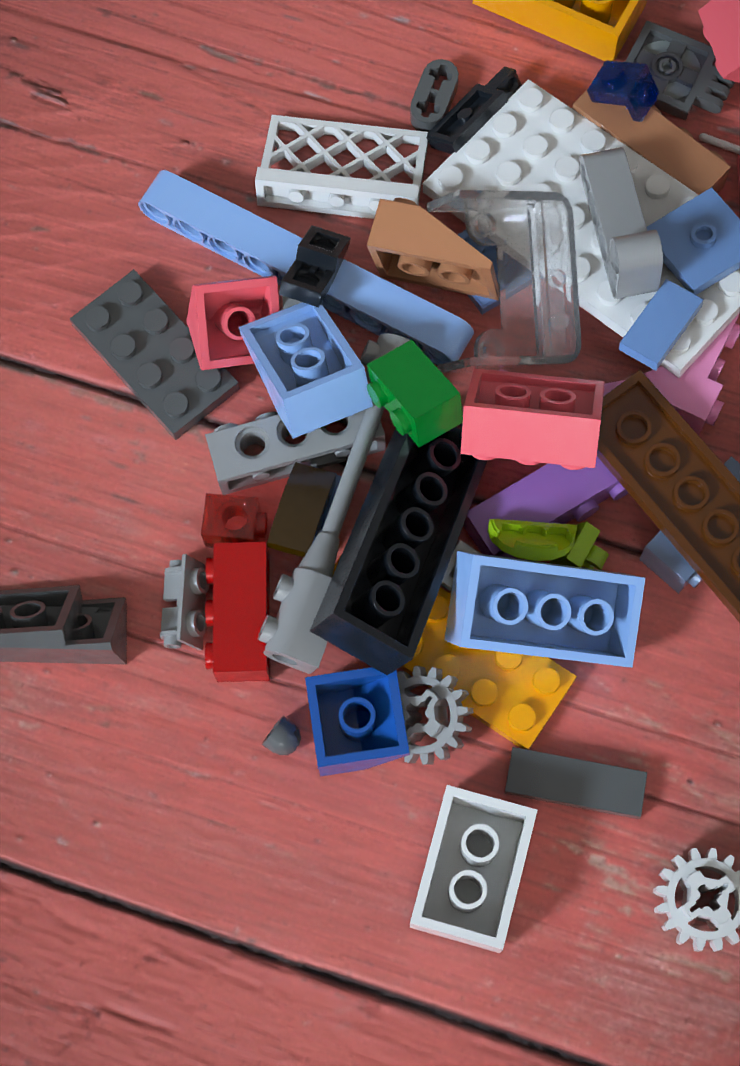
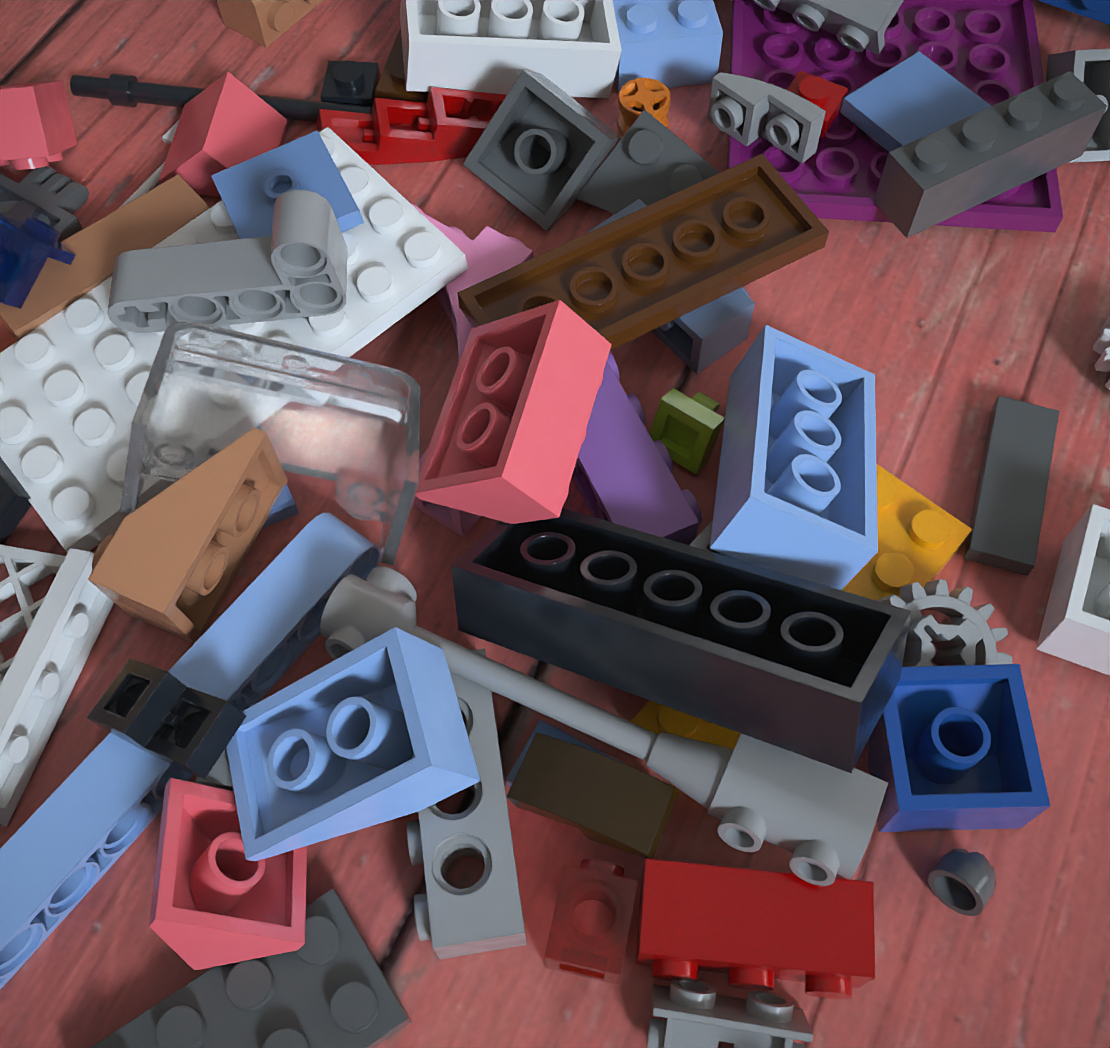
camera: 85 degrees left, 10 degrees down
(414, 393) = (452, 560): green brick -> none
(532, 539) = (689, 461): lime tile -> none
(661, 324) = (401, 256): medium blue tile -> none

